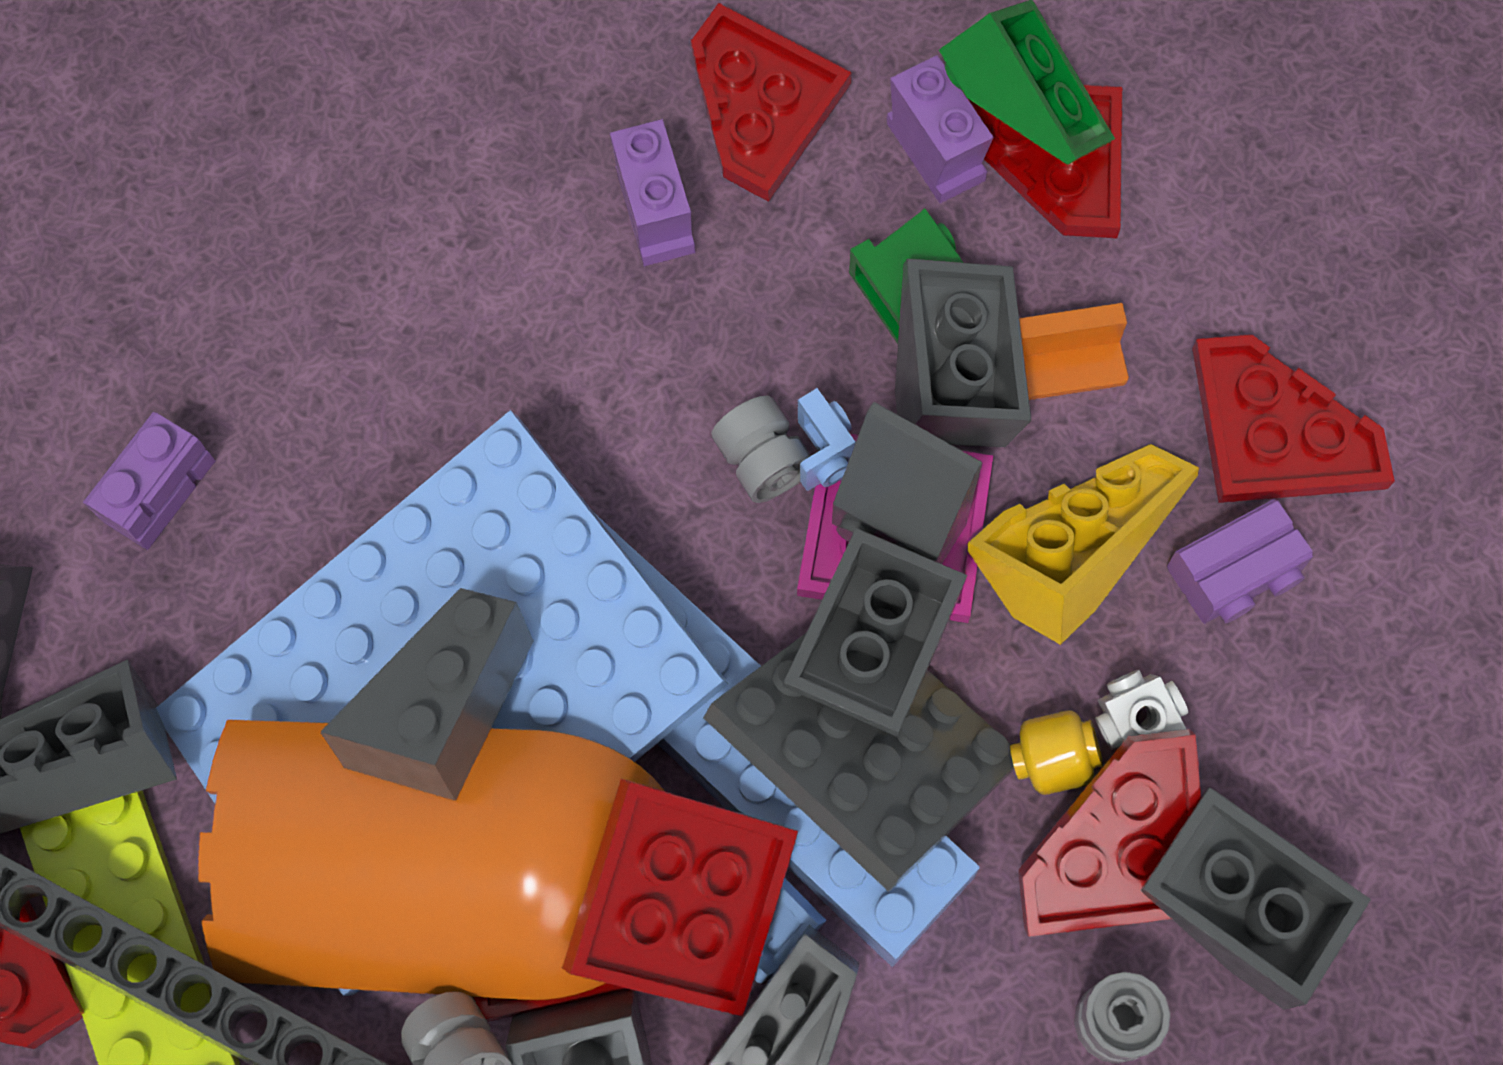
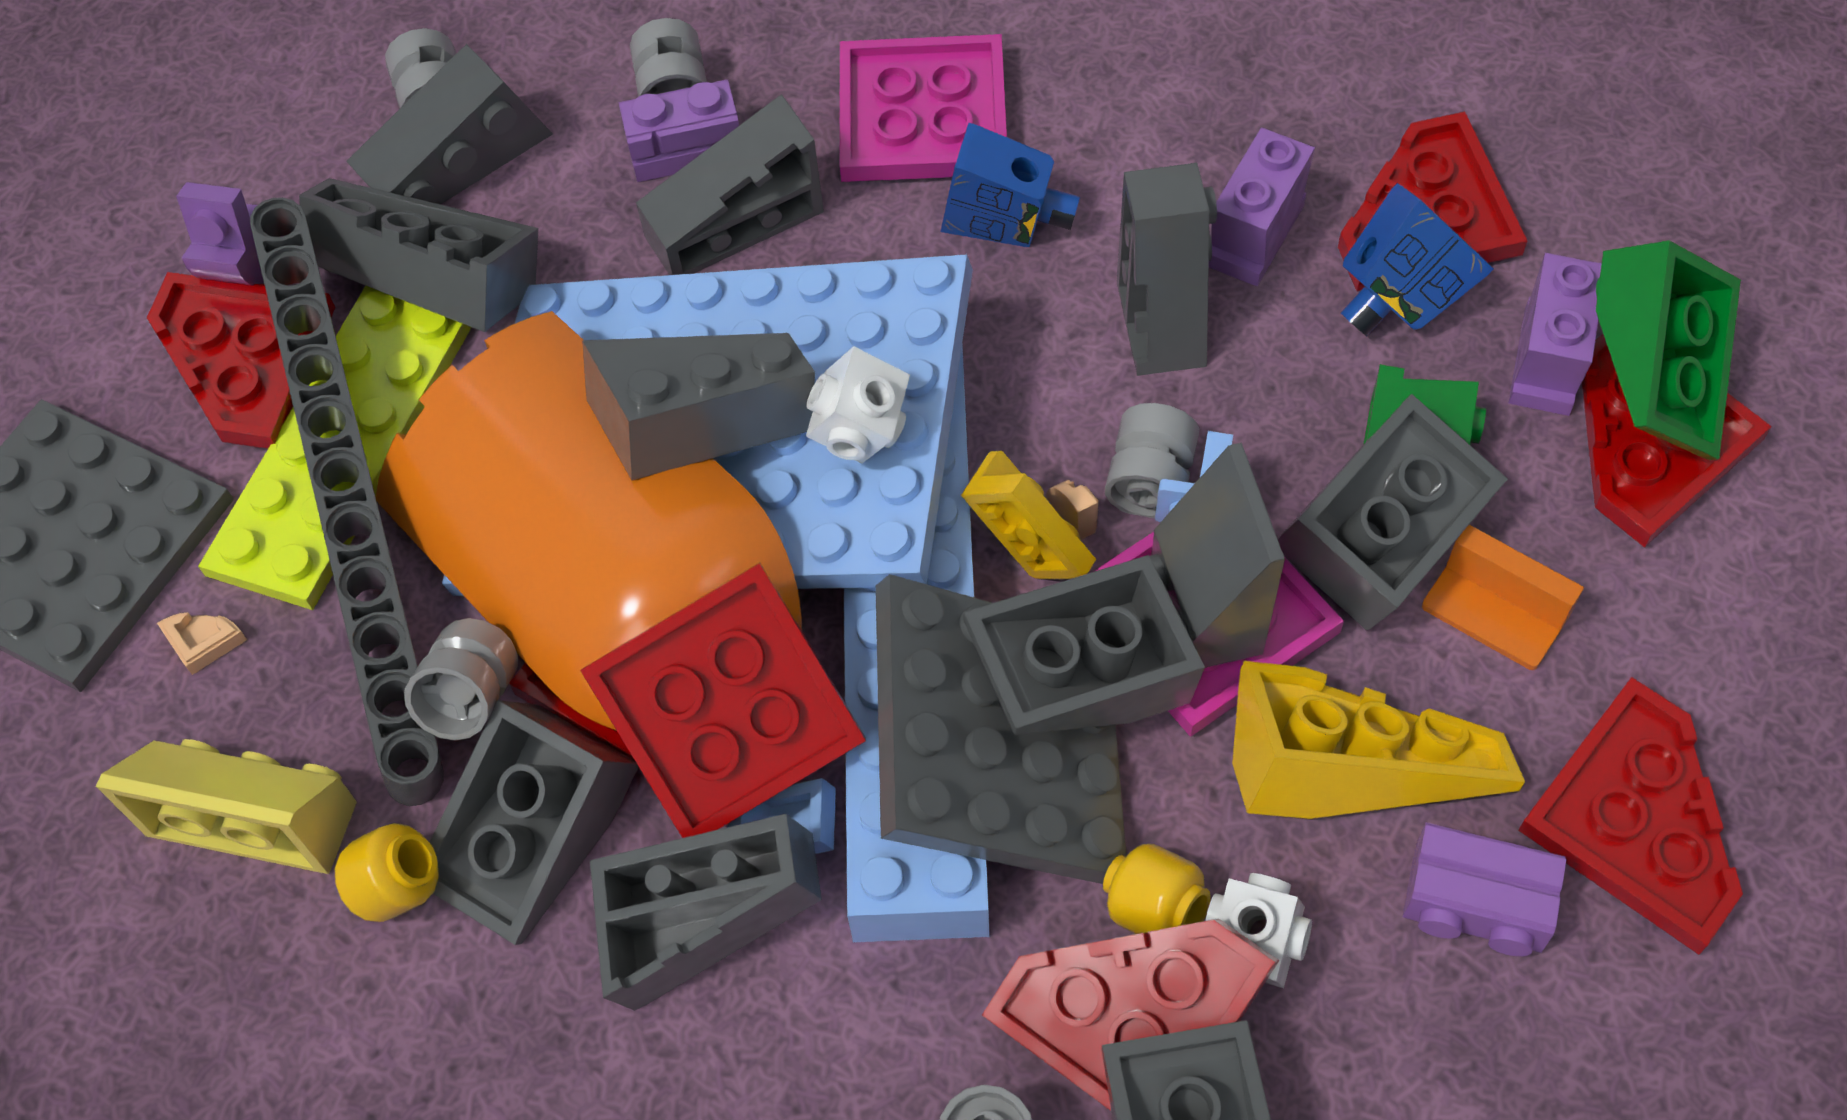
camera: 45 degrees right, 10 degrees down
(80, 435) = (666, 56): none -> light grey wheel
(251, 500) = (735, 192): none -> dark grey wedge
(318, 308) = (912, 102): none -> dark pink plate
(456, 330) = (1003, 191): none -> blue torso
(567, 600) = (857, 406): none -> white brick
(644, 298) = (1166, 266): none -> dark grey wedge
(727, 570) = (1025, 521): none -> yellow bracket
(743, 529) = (1075, 506): none -> light nougat tile
(800, 158) = (1409, 265): none -> blue torso

